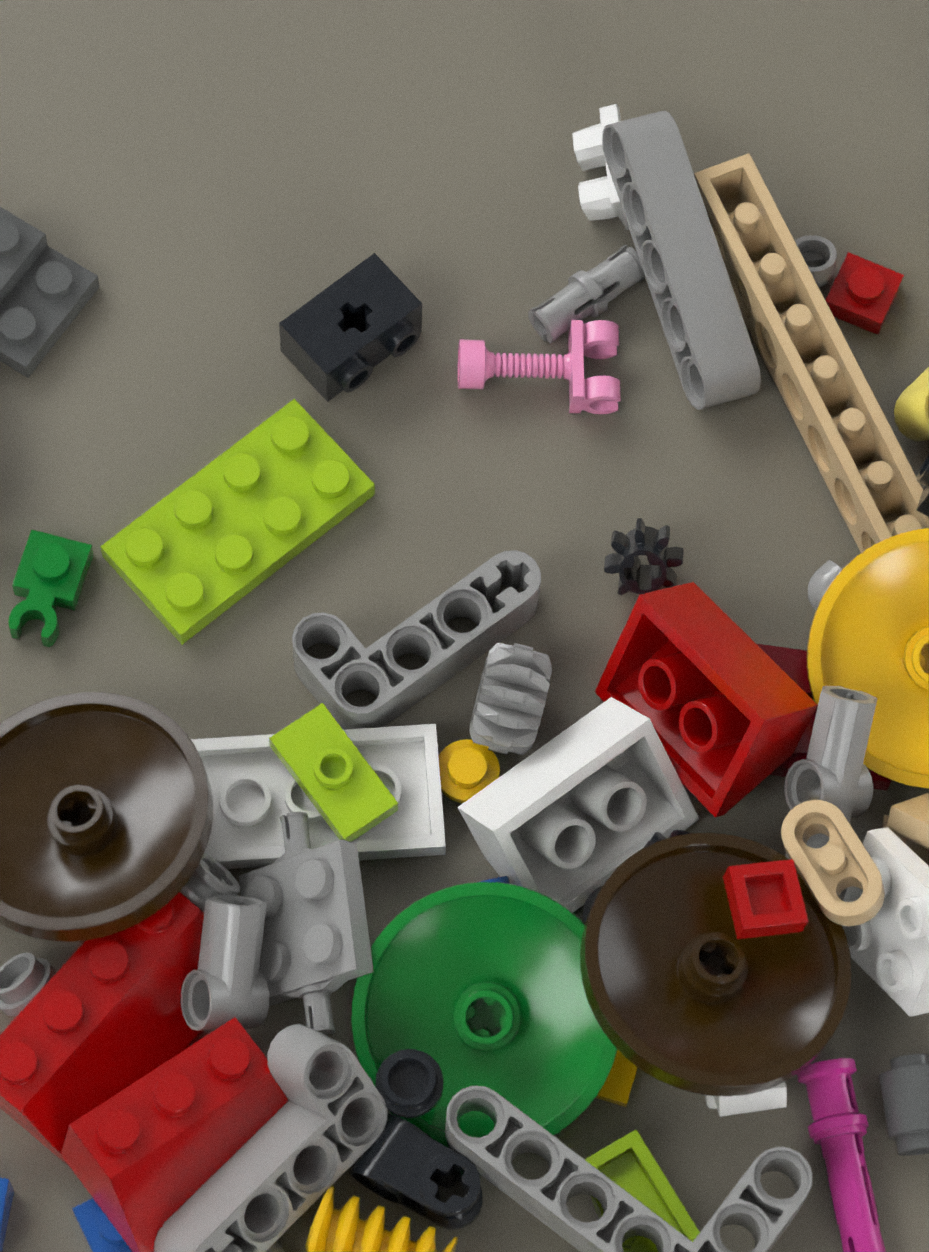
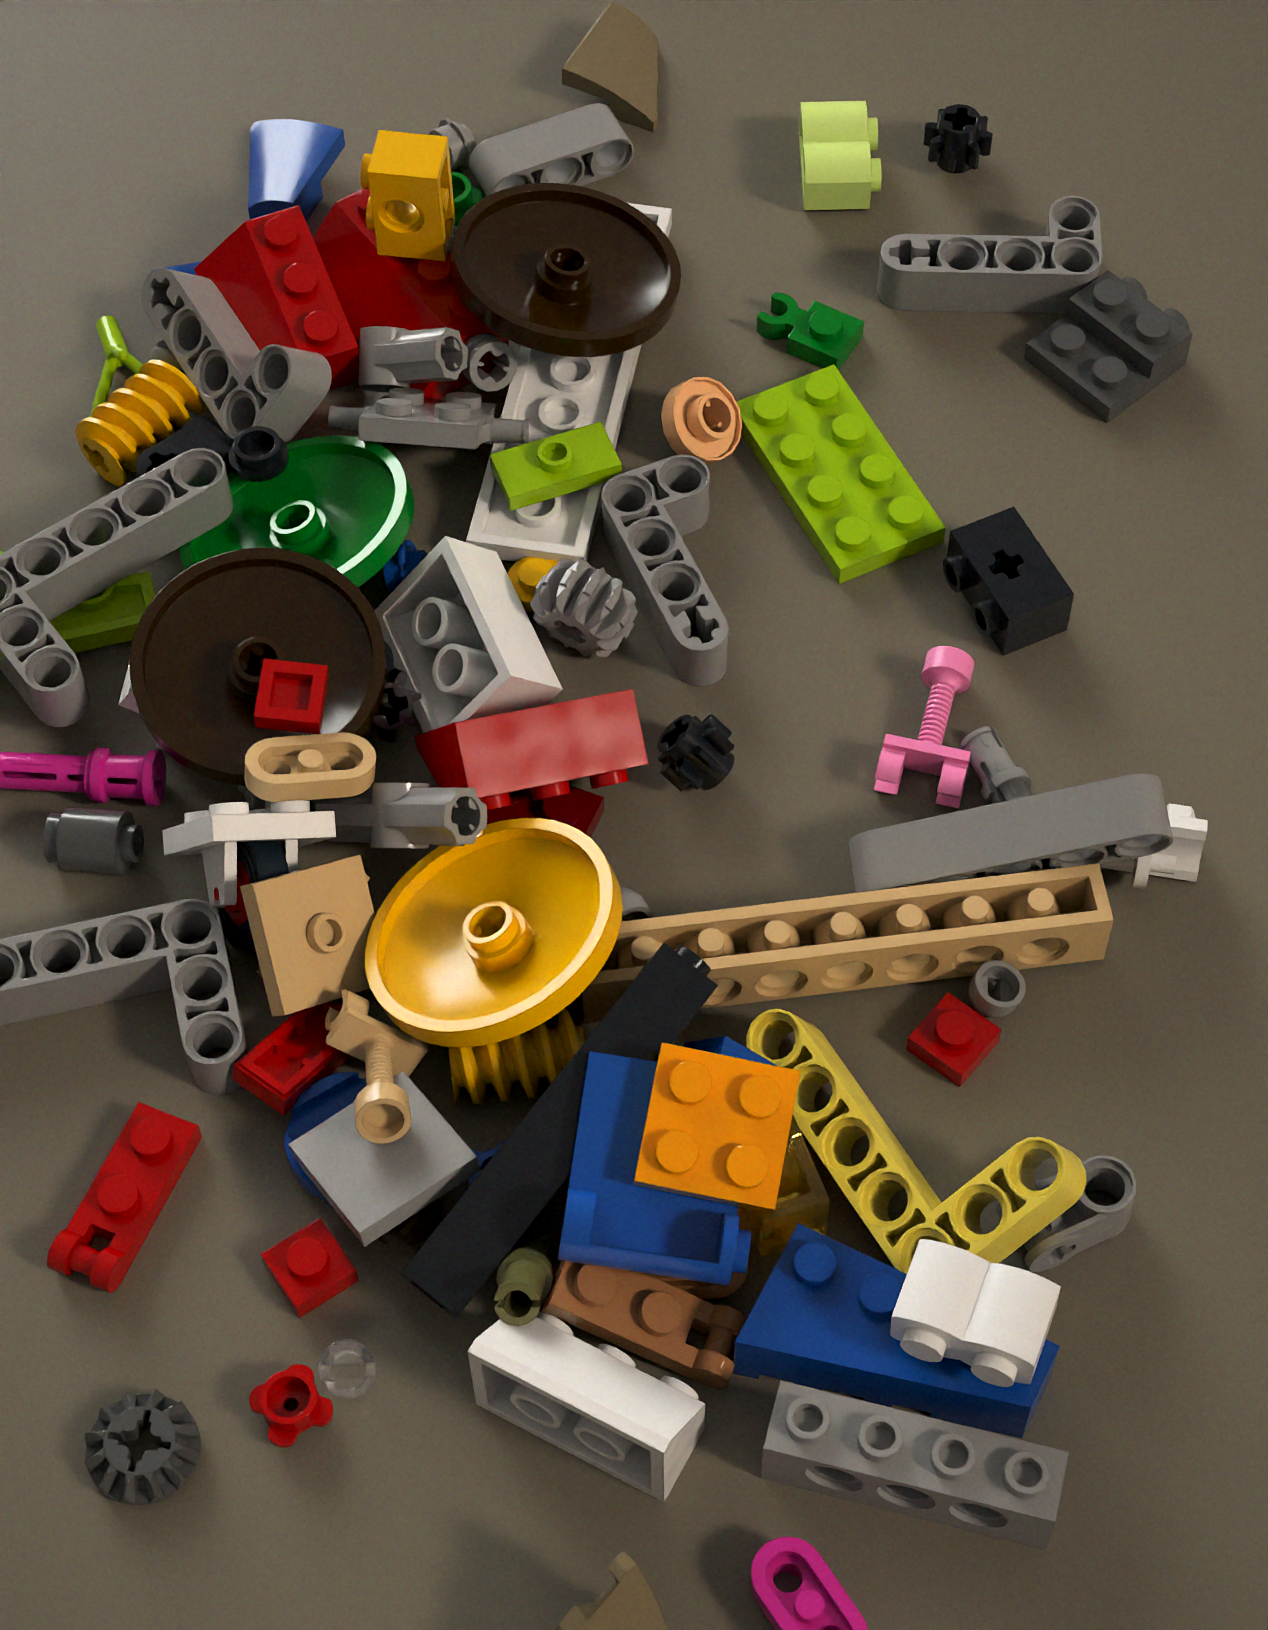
camera: 110 degrees right, 10 degrees down
(59, 975) = (409, 195): none -> yellow brick
(222, 653) = (701, 419): none -> light nougat plate

